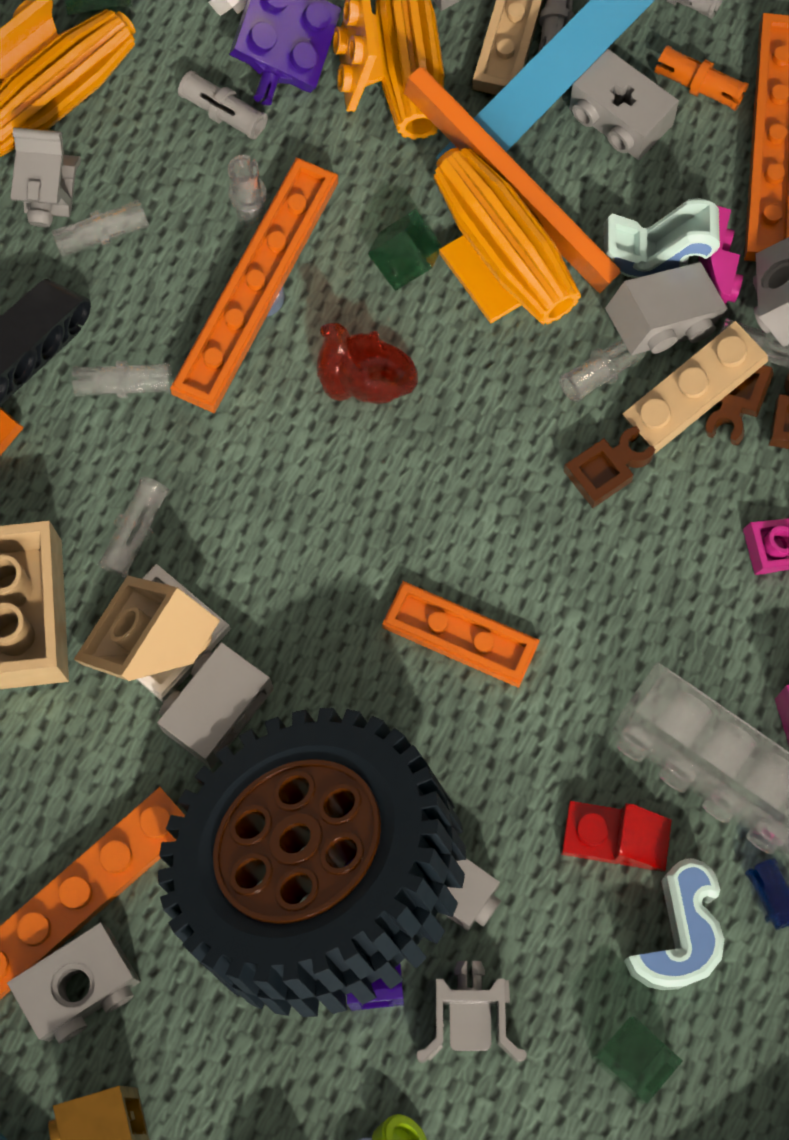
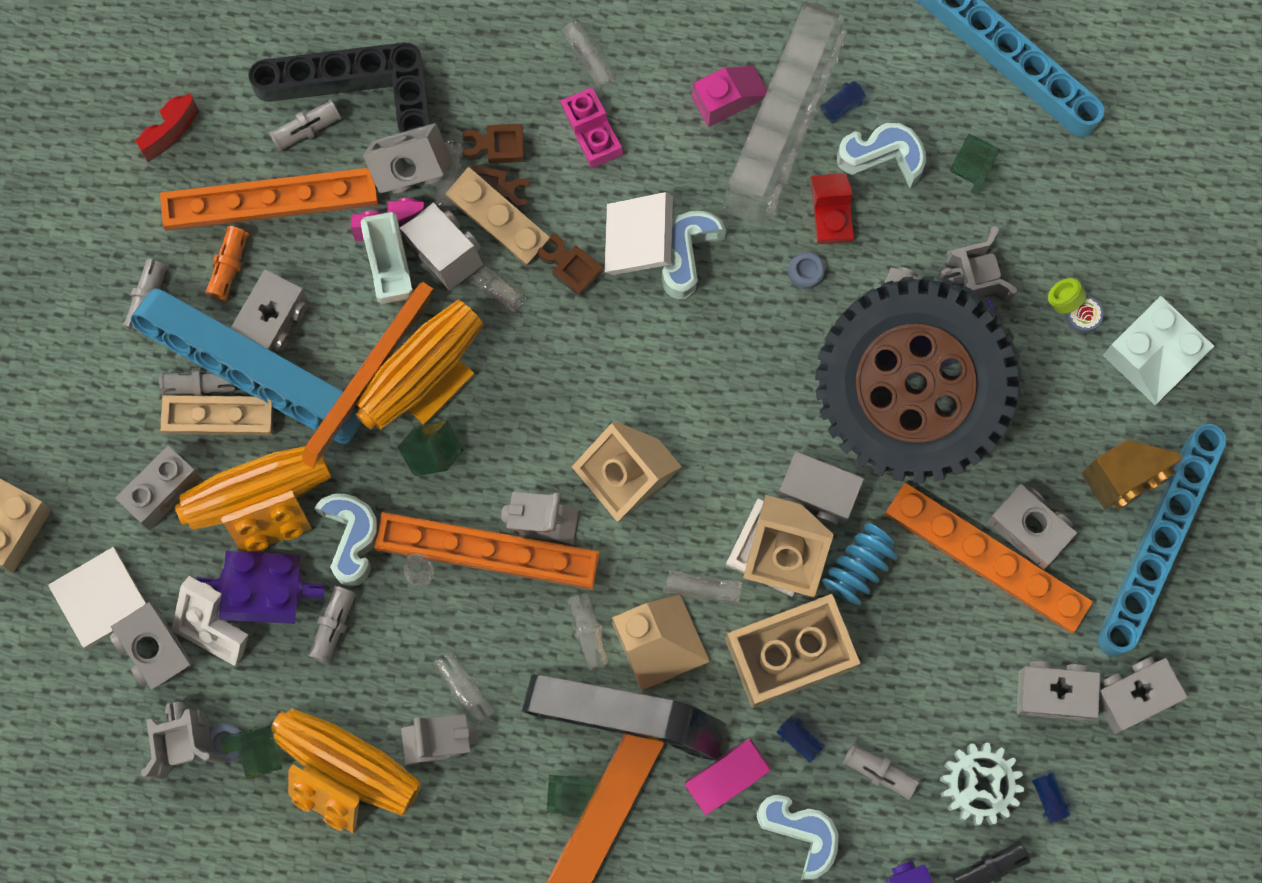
camera: 110 degrees left, 5 degrees up
(84, 456) = (659, 641): none -> tan slope
(89, 730) = (860, 564): none -> dark azure piece
(283, 341) = (541, 517): none -> light grey piece
(313, 469) = (625, 468): none -> tan slope
(343, 152) = (357, 538): none -> light aqua animal
(363, 367) = (540, 449): clear red hair -> none
(460, 634) = (719, 340): orange tile -> none
(532, 775) = (806, 270): none -> sand blue tile
(596, 606) = (688, 228): none -> light aqua animal
(630, 556) = (639, 234): none -> white tile

